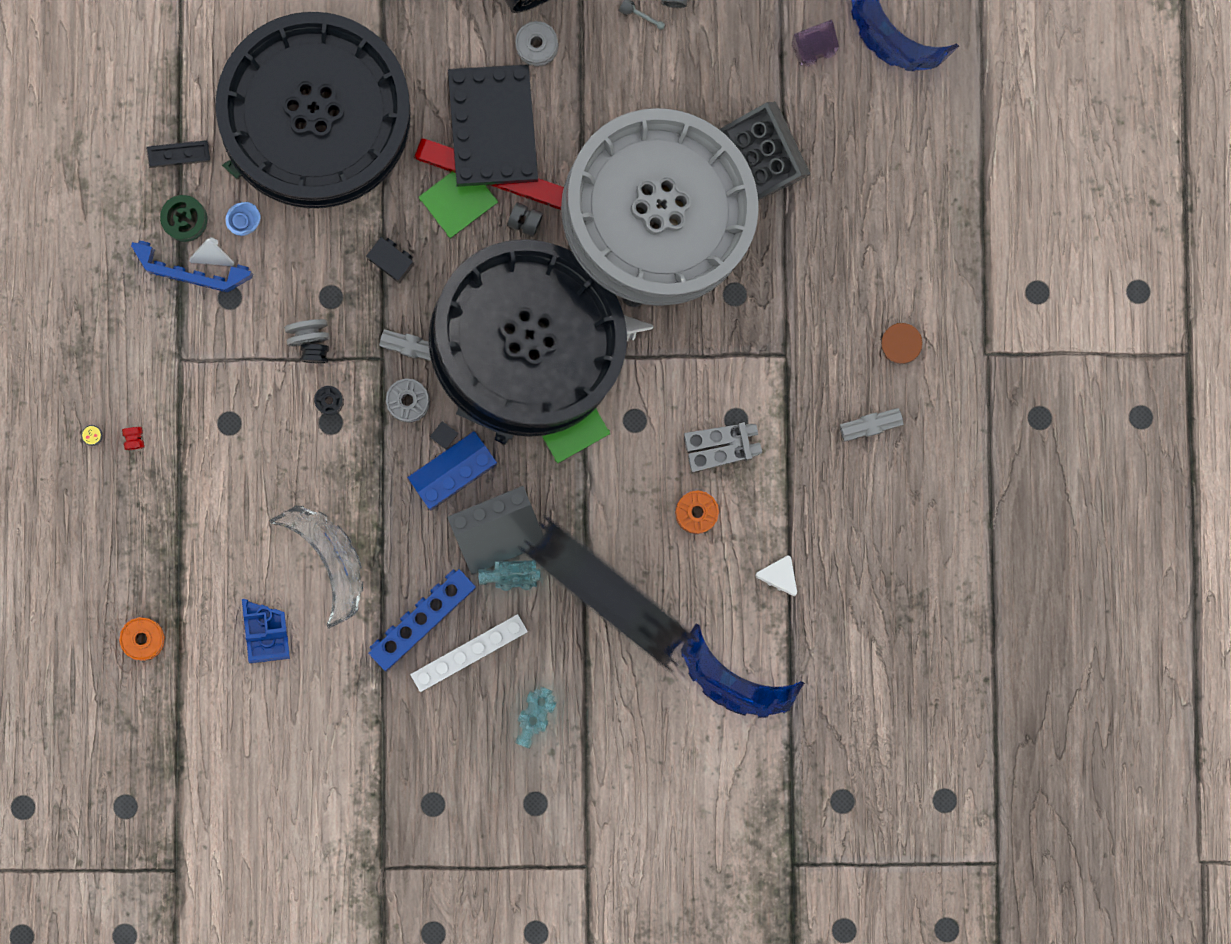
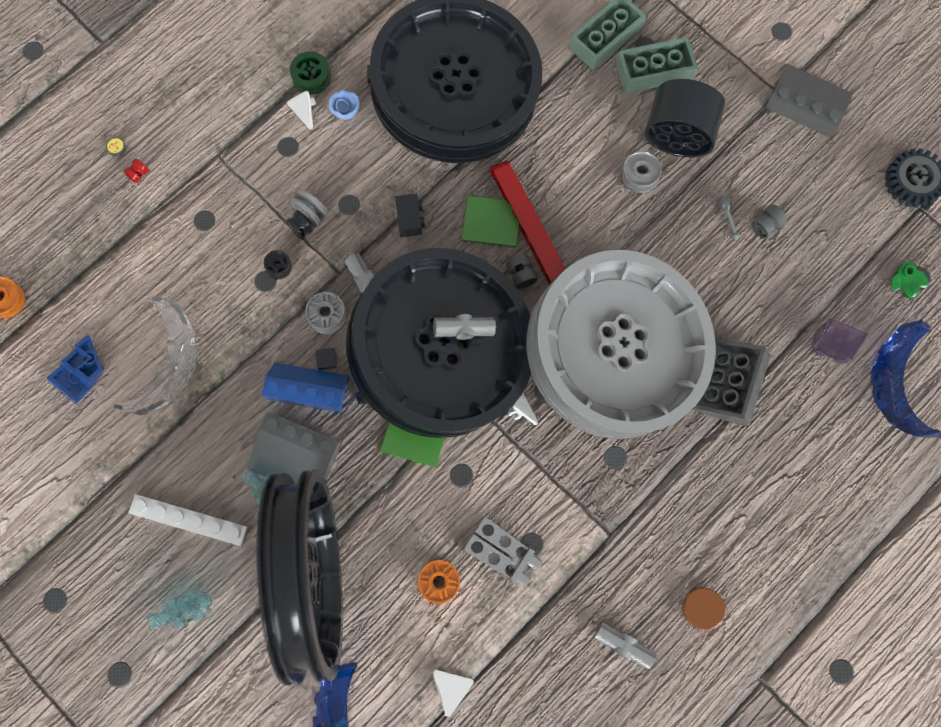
camera: 50 degrees right, 10 degrees down
(178, 154) = (347, 33): black hinge -> none
(236, 275) = (301, 135): blue slope -> none
(378, 648) = (131, 459): blue brick -> none
(492, 125) = (560, 194): black plate -> none
(535, 310) = (464, 326): none -> light grey piece

